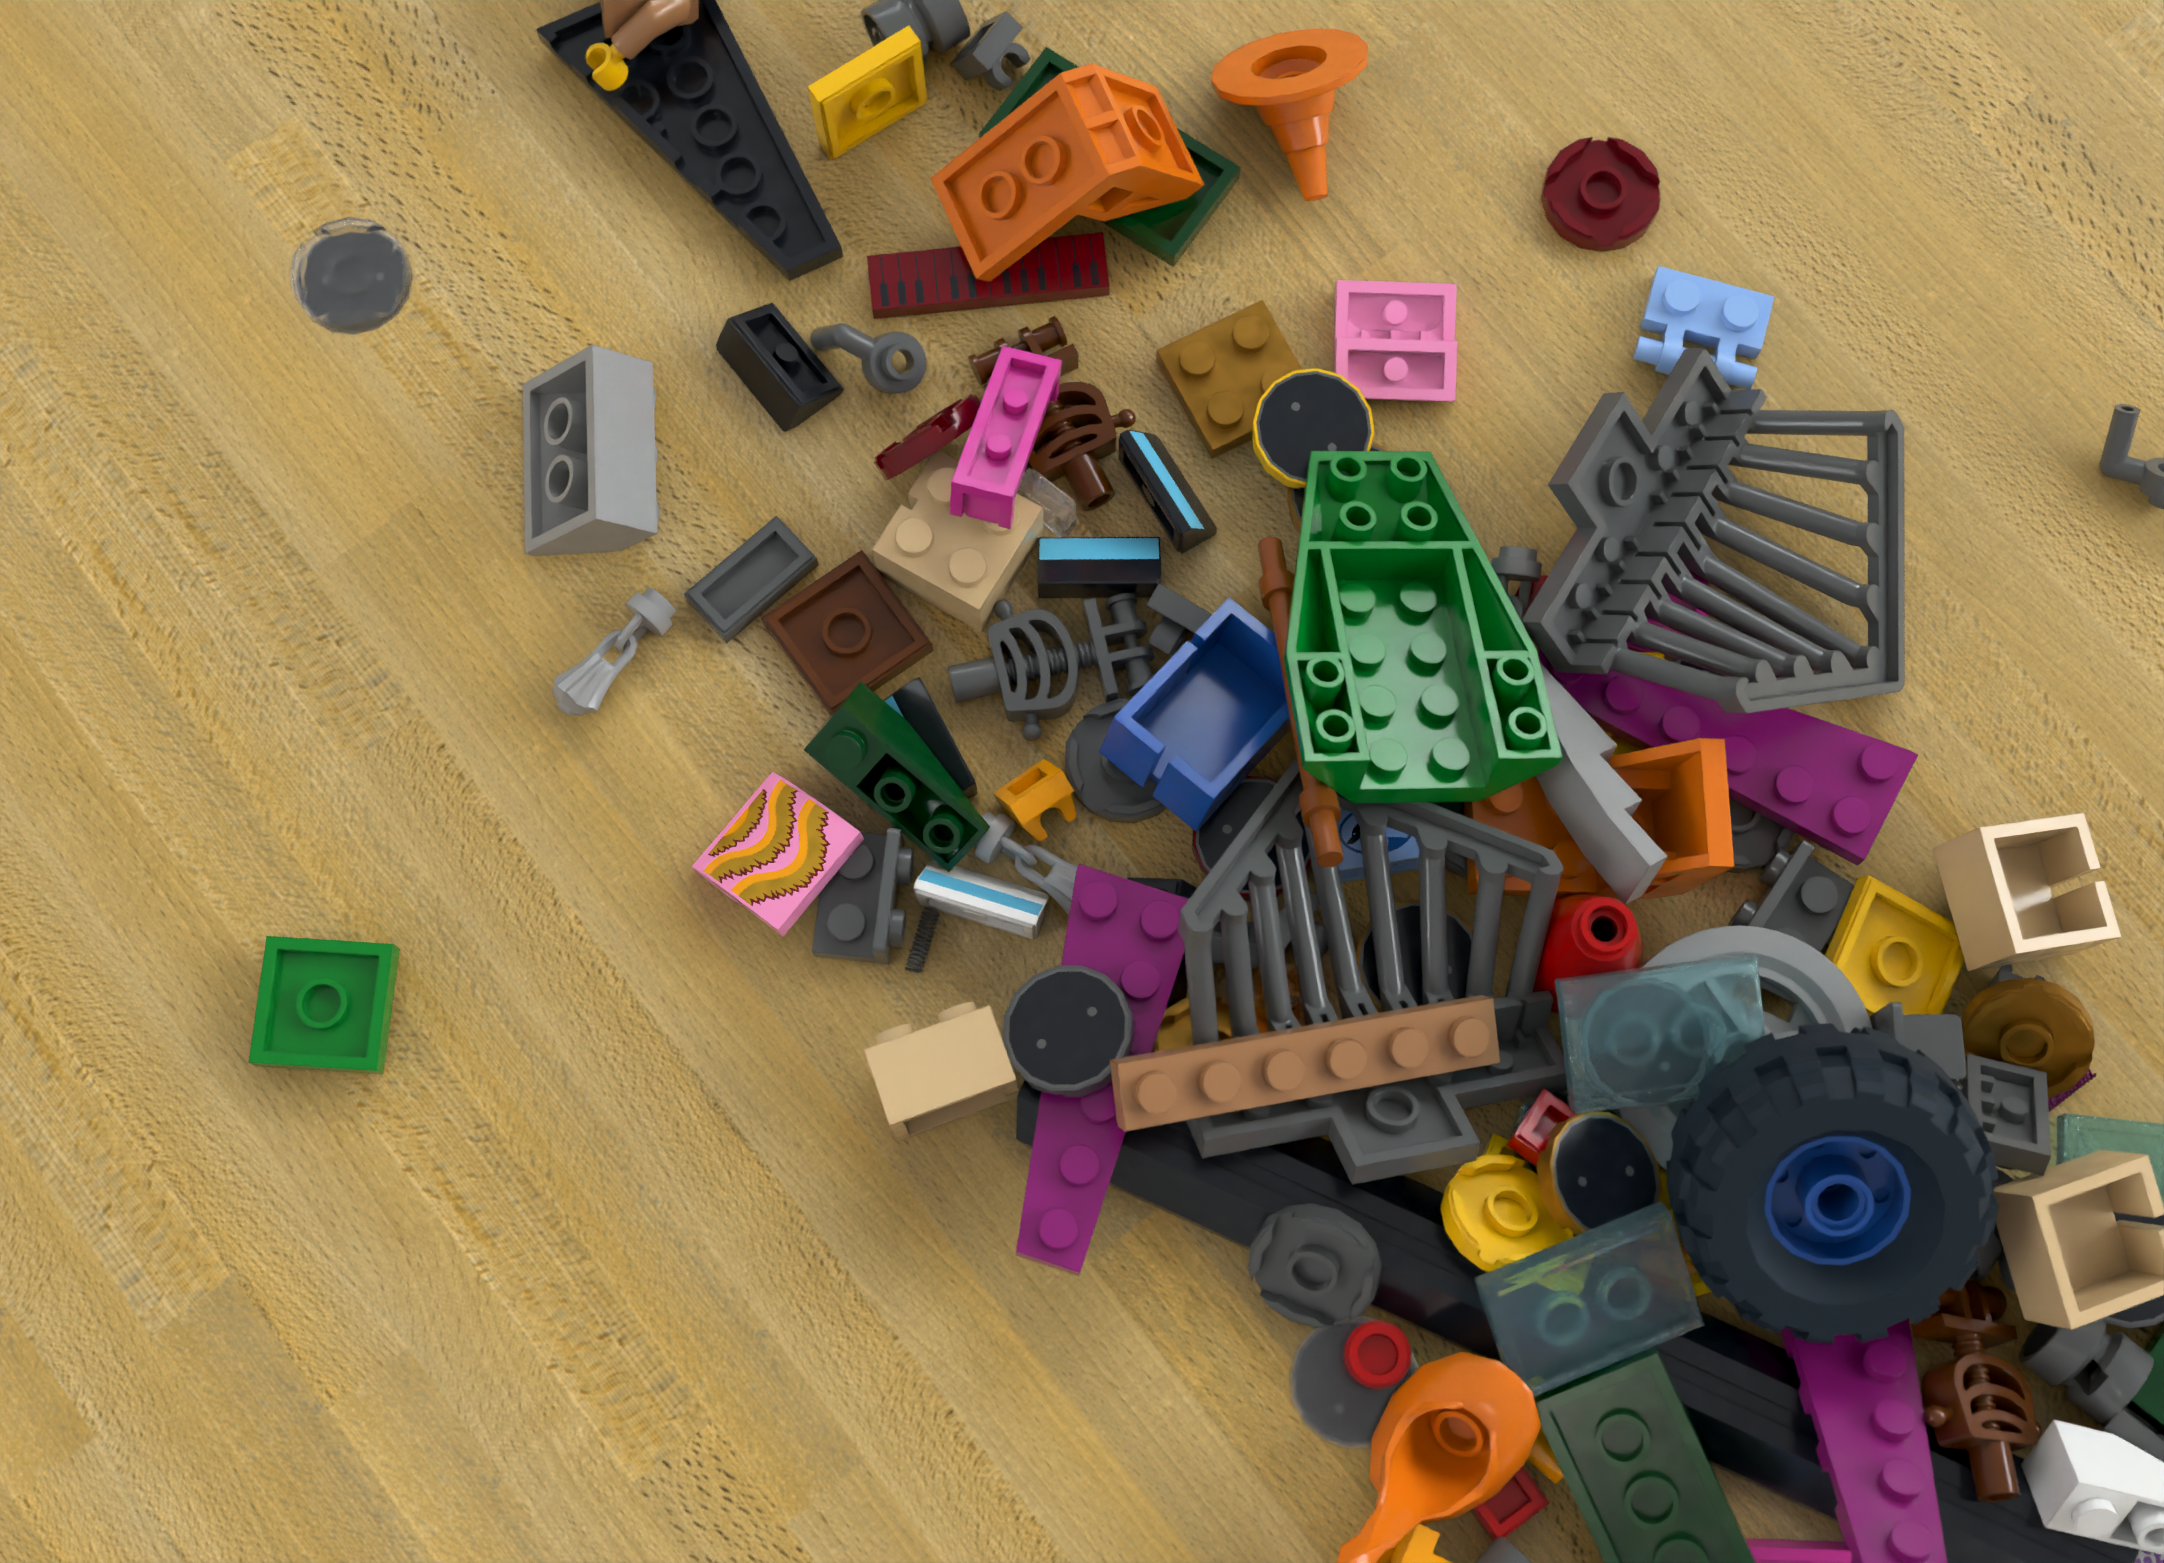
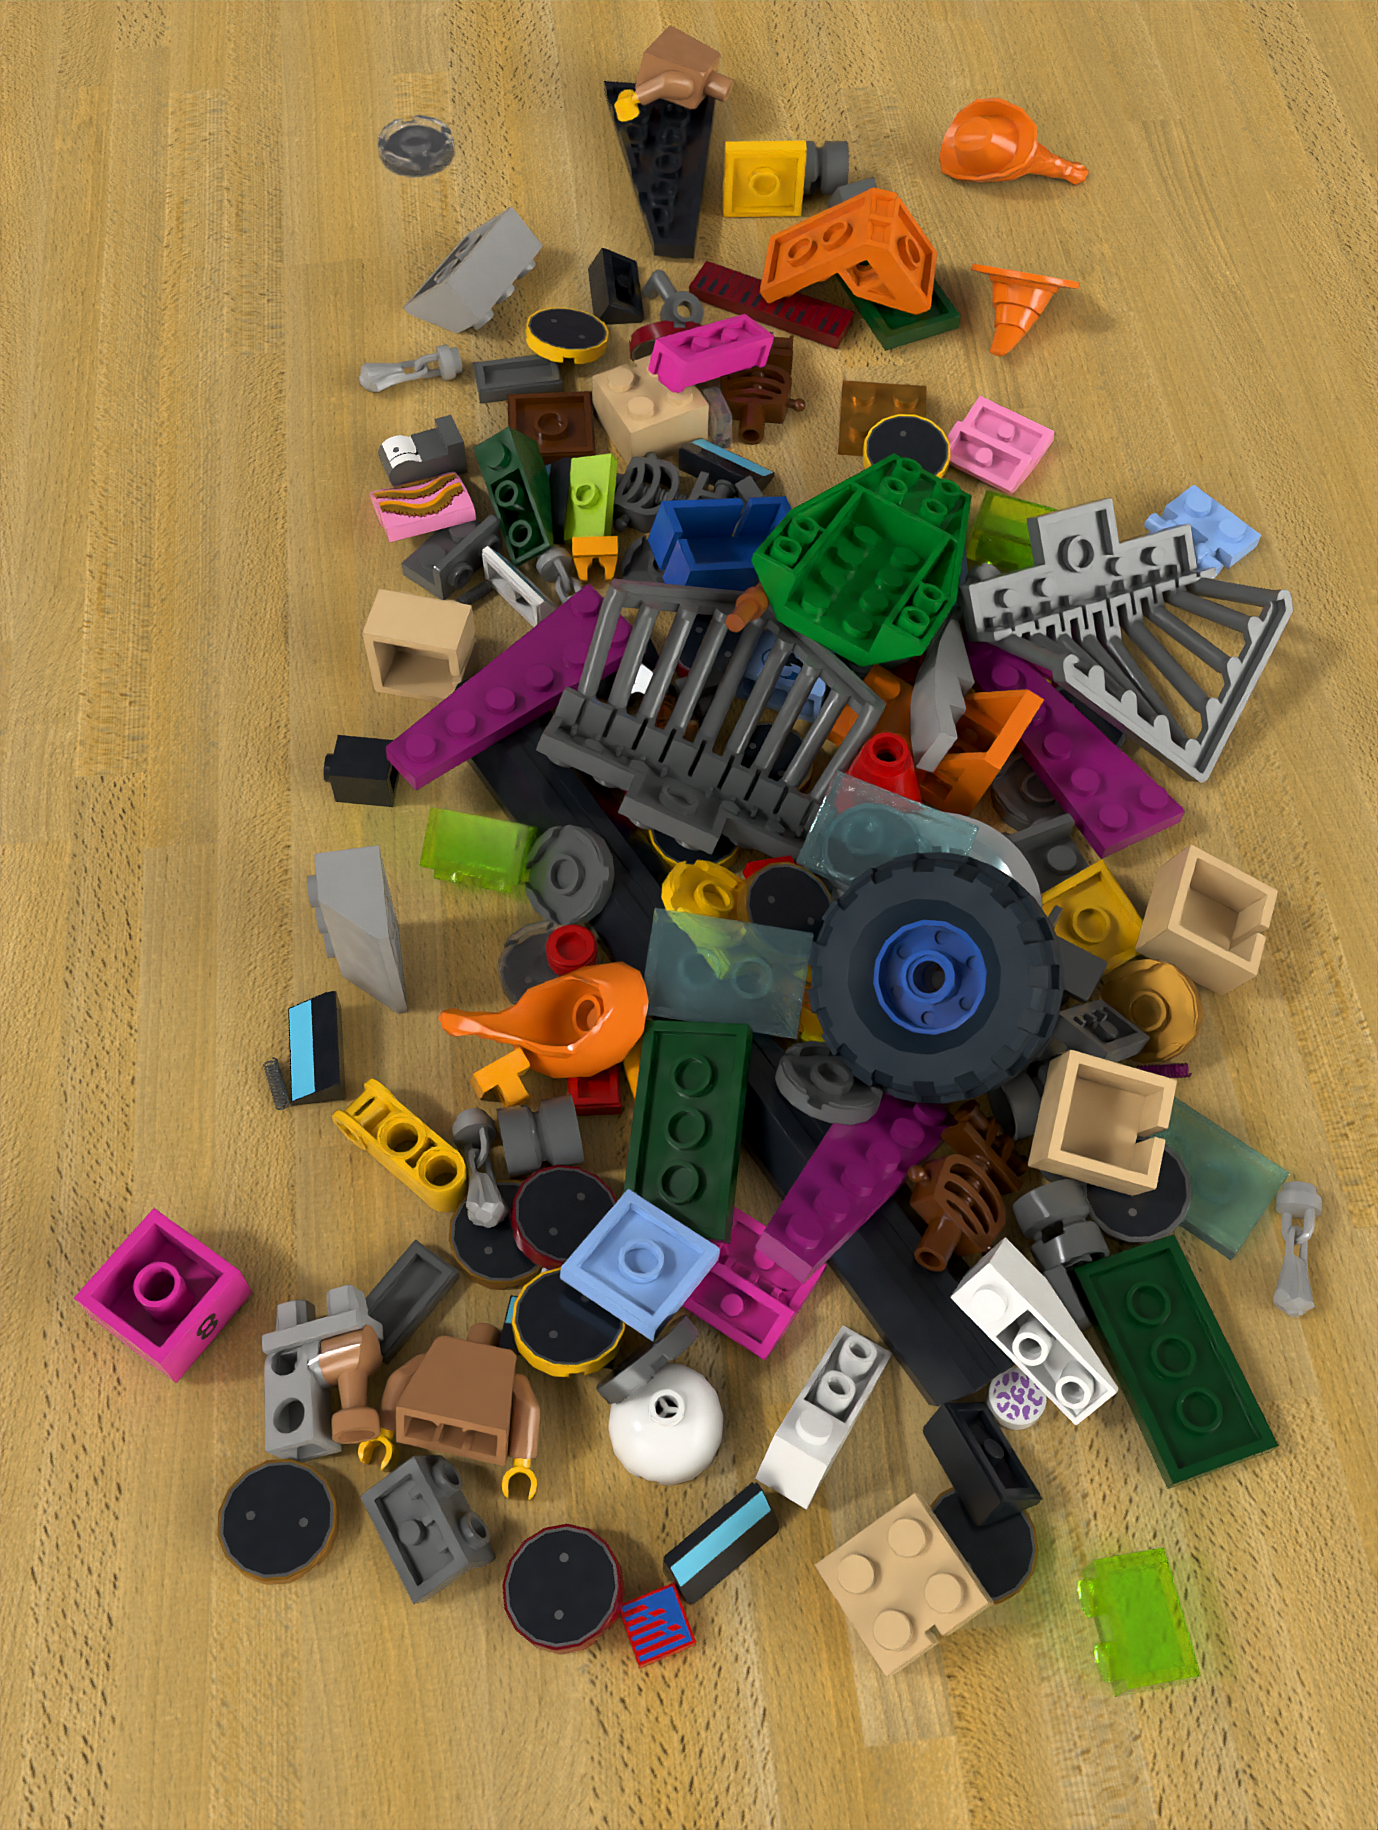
camera: 30 degrees right, 15 degrees down
(324, 1005) = (112, 448): green plate -> none
(726, 776) = (424, 453): none -> dark grey leg
(774, 483) = (568, 334): none -> tile
(977, 1271) = (361, 771): none -> black brick
(982, 724) = (590, 497): none -> lime plate
(1067, 1030) = (510, 650): black tile -> none
(1158, 1498) = (360, 921): none -> light grey slope
(1165, 490) = (796, 448): black slope -> none
(1188, 1292) = (477, 848): none -> clear neon green brick
(1303, 1062) = (641, 735): medium nougat plate -> none
(1505, 466) = (1002, 531): none -> clear neon green brick
(1601, 194) = (1184, 438): dark red tile -> none
(1768, 1370) = (824, 1085): none -> dark grey tile

